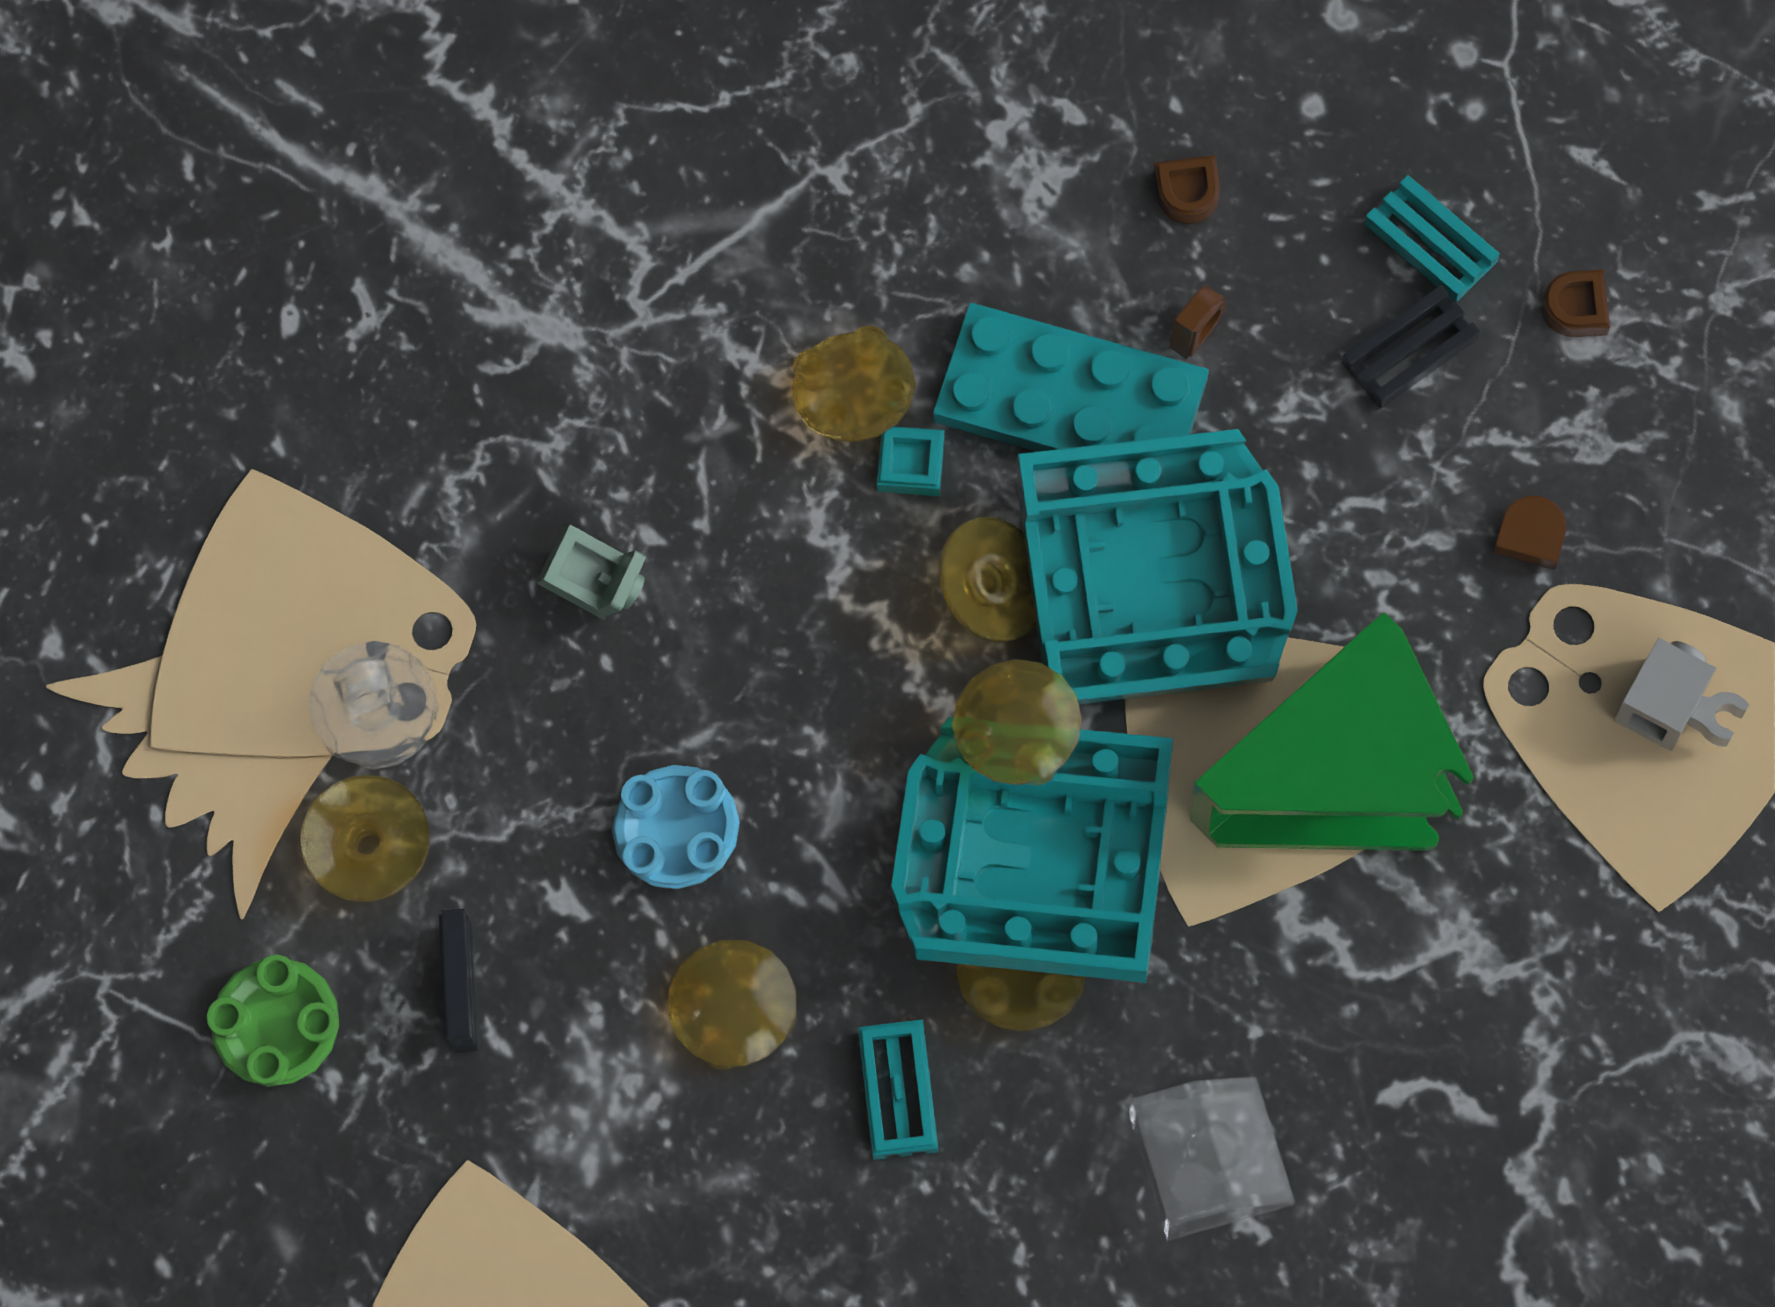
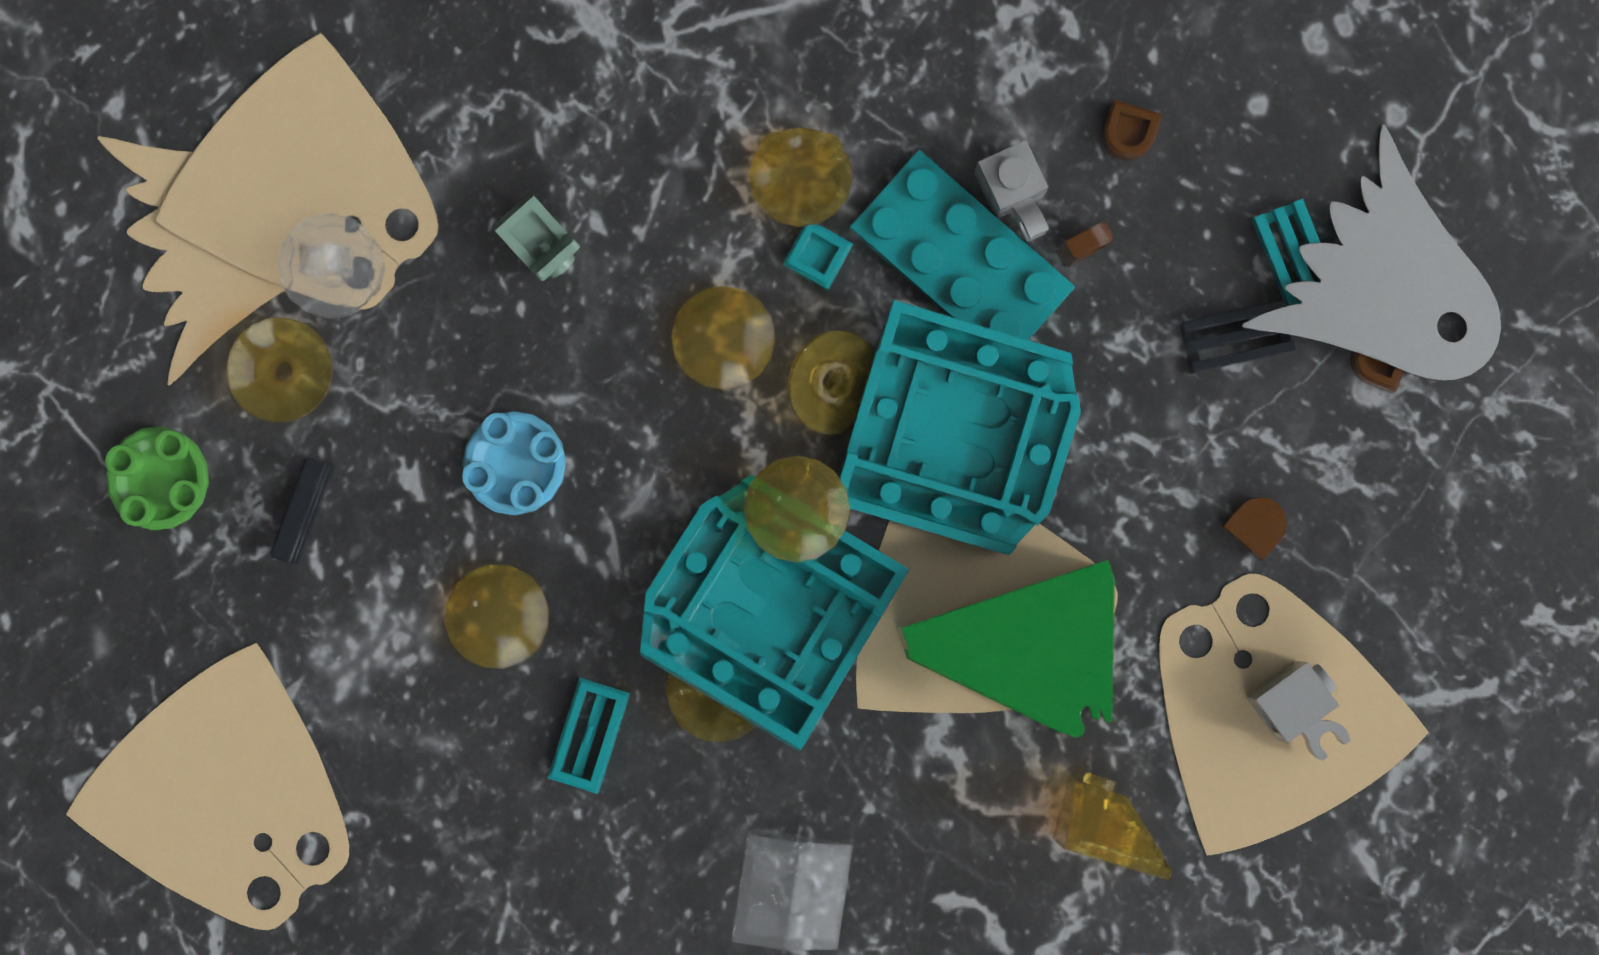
camera: 20 degrees right, 15 degrees up
(847, 591) = (723, 337): none -> clear yellow dish
(1091, 291) = (1013, 184): none -> light grey brick
(1534, 919) = (1107, 827): none -> clear yellow slope
(1548, 219) = (1392, 283): none -> light grey piece

